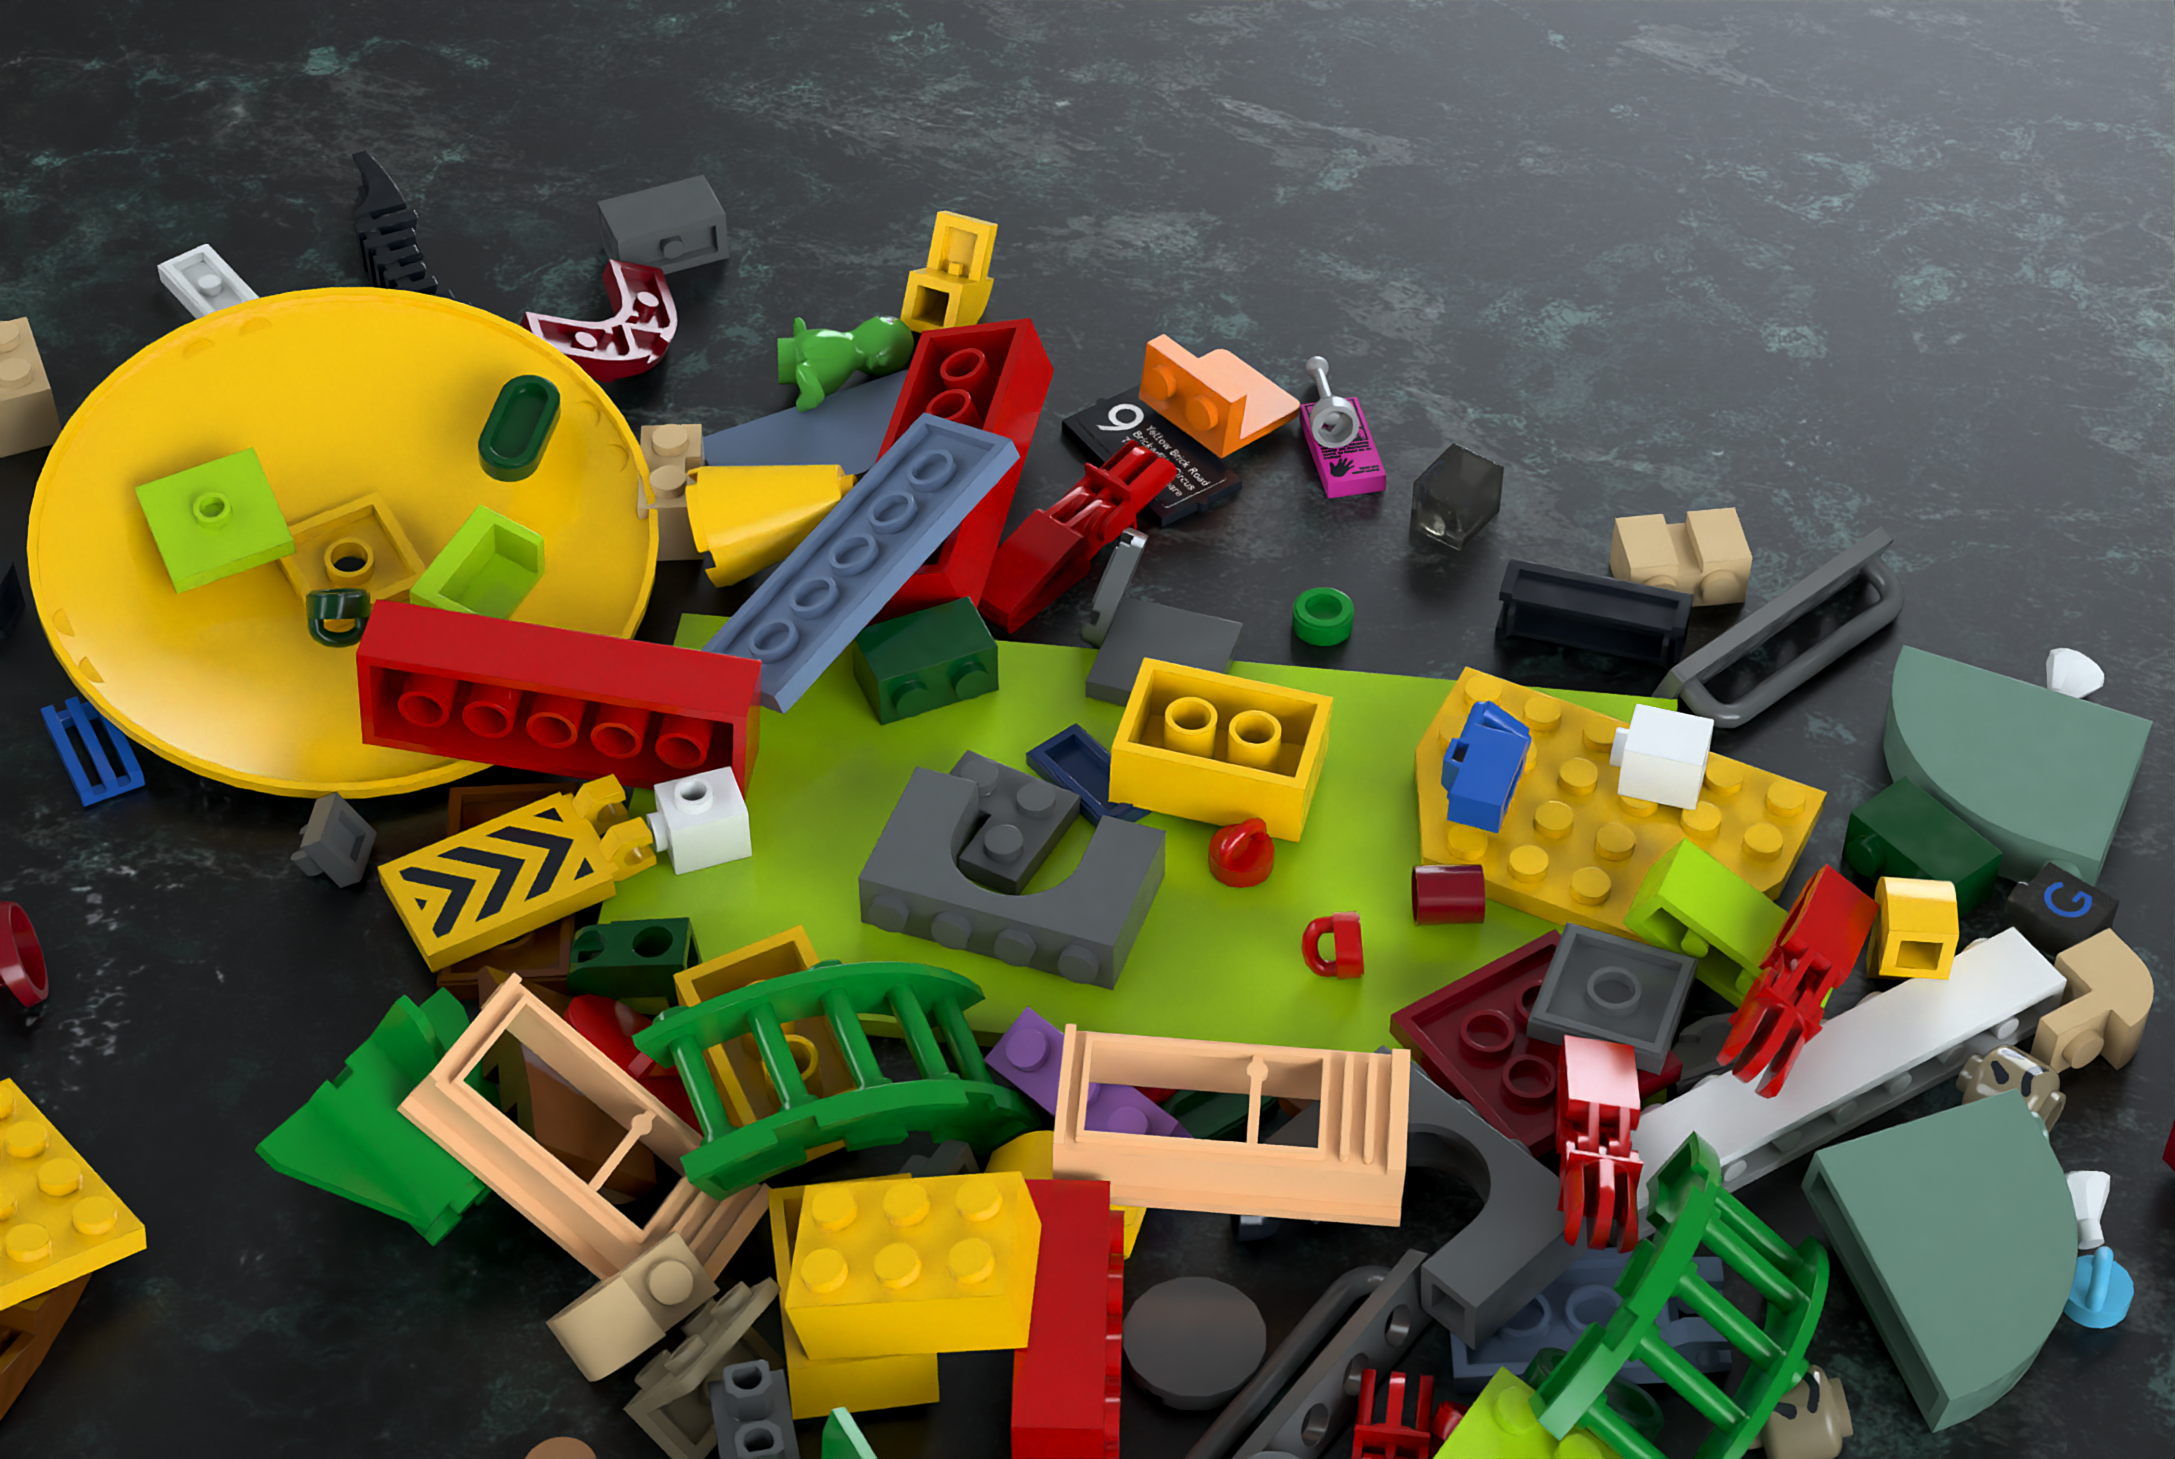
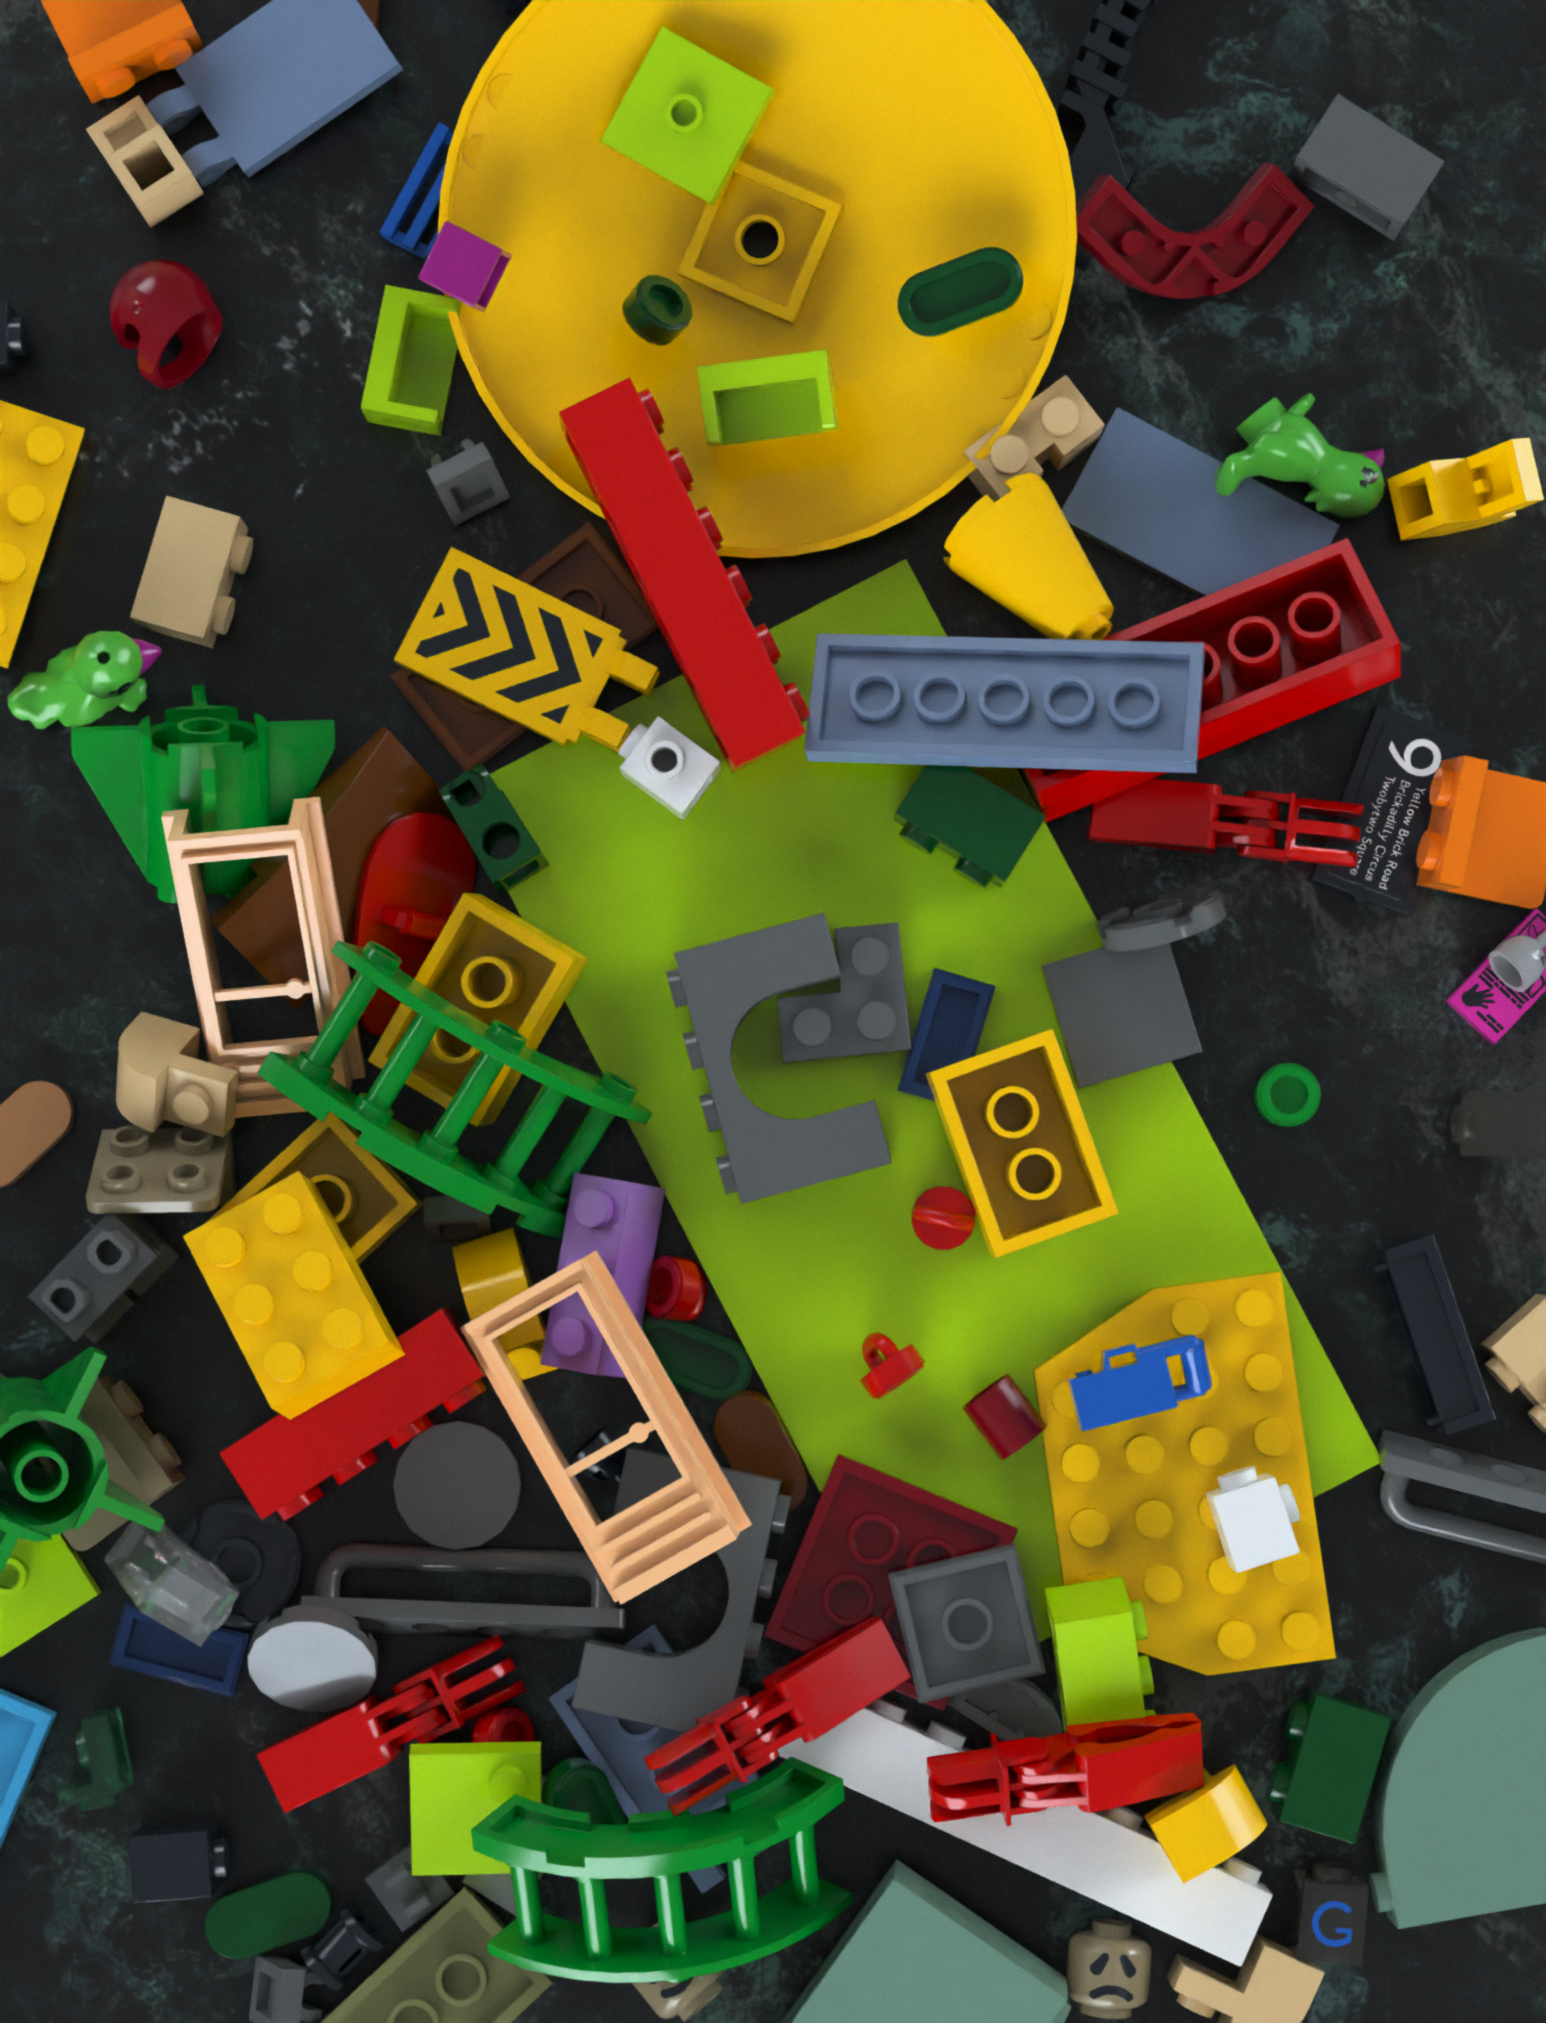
camera: 55 degrees right, 40 degrees up
(173, 707) = (464, 266): none -> magenta piece
(199, 828) = (411, 361): none -> lime panel
(209, 1067) = (192, 572): none -> tan brick
(223, 1178) = (86, 681): none -> bright green animal

